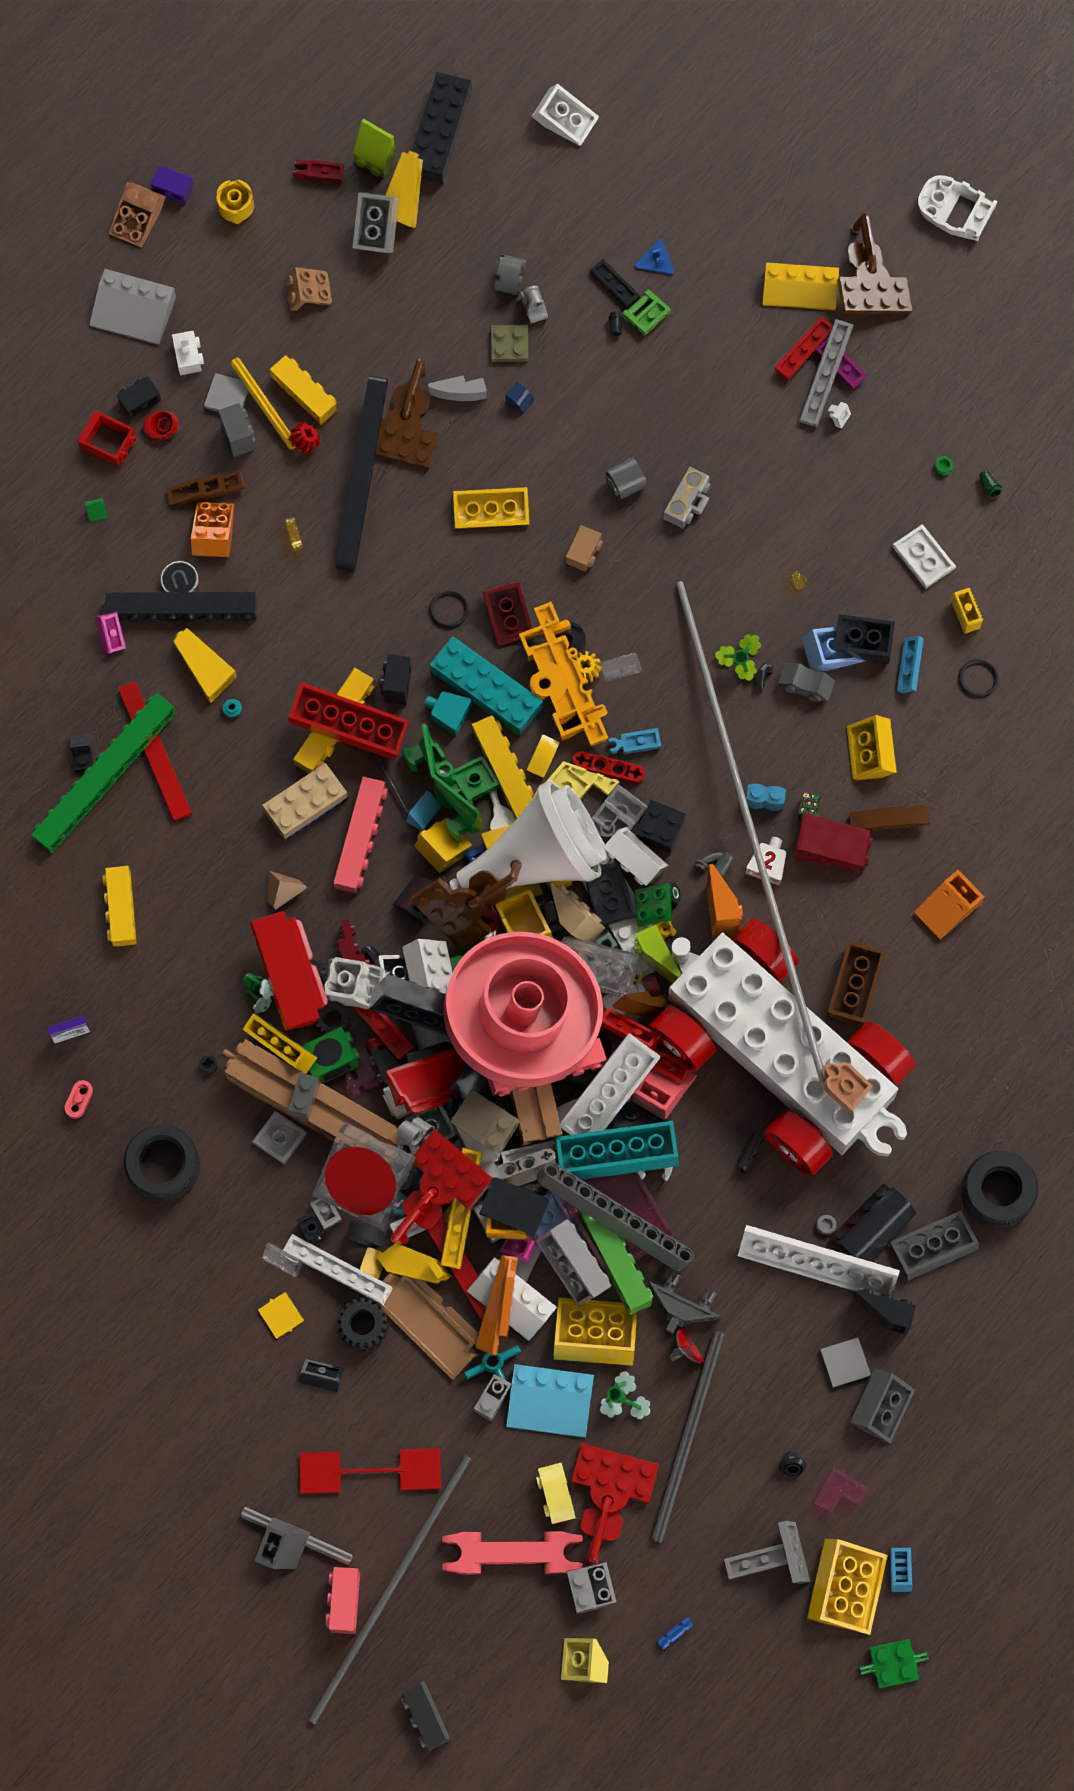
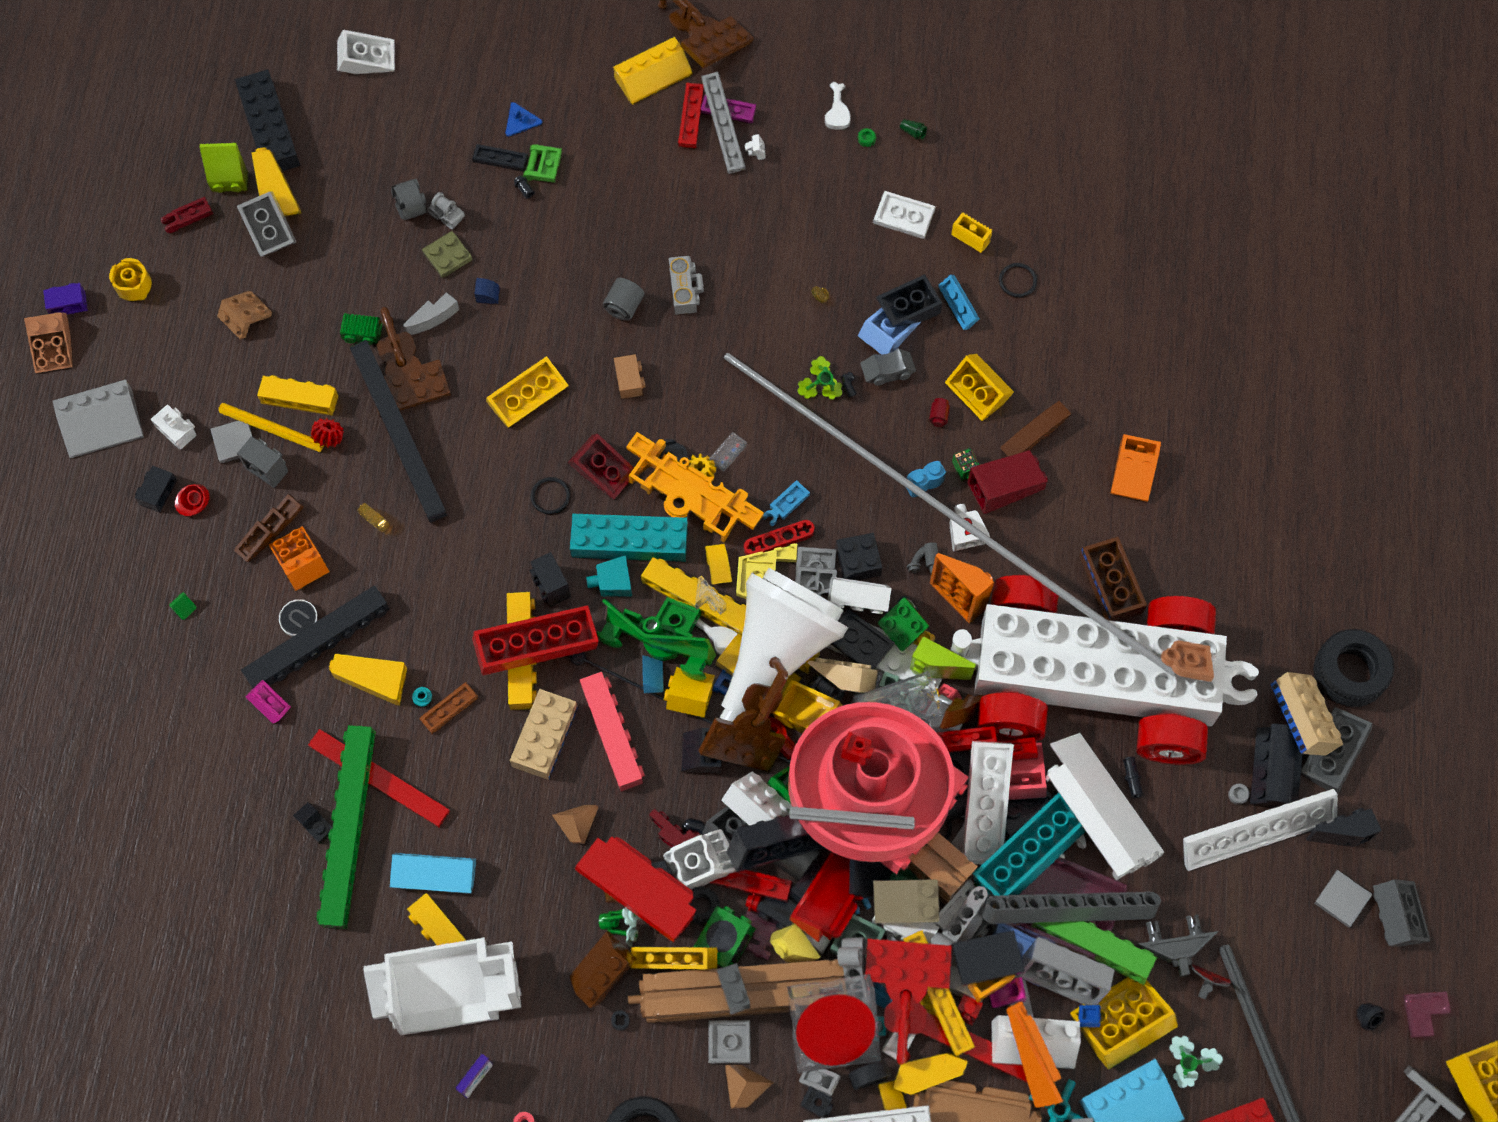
camera: 35 degrees left, 5 degrees down
(91, 430) = (131, 540): red window -> none
(93, 946) = (444, 985): none -> white panel
(145, 853) = (432, 872): none -> medium azure brick
(219, 1016) = (601, 970): none -> reddish brown slope
(247, 731) = (448, 708): none -> dark orange tile
(266, 1177) = (744, 1085): none -> medium nougat slope
(376, 1096) = (793, 945): none -> light yellow slope
(392, 364) = (360, 328): none -> green brick
(478, 1240) = (969, 1009): none -> red brick
(481, 1026) = (854, 818): none -> light grey axle
(510, 774) = (707, 593): none -> clear slope
(514, 974) = (857, 749): none -> red brick
(569, 1309) = (1089, 1015): none -> blue tile
(699, 1156) = (1102, 807): none -> white panel
(820, 749) = (939, 412): none -> dark red brick
(927, 1198) = (1306, 714): none -> tan brick
(934, 430) = (839, 115): none -> white piece

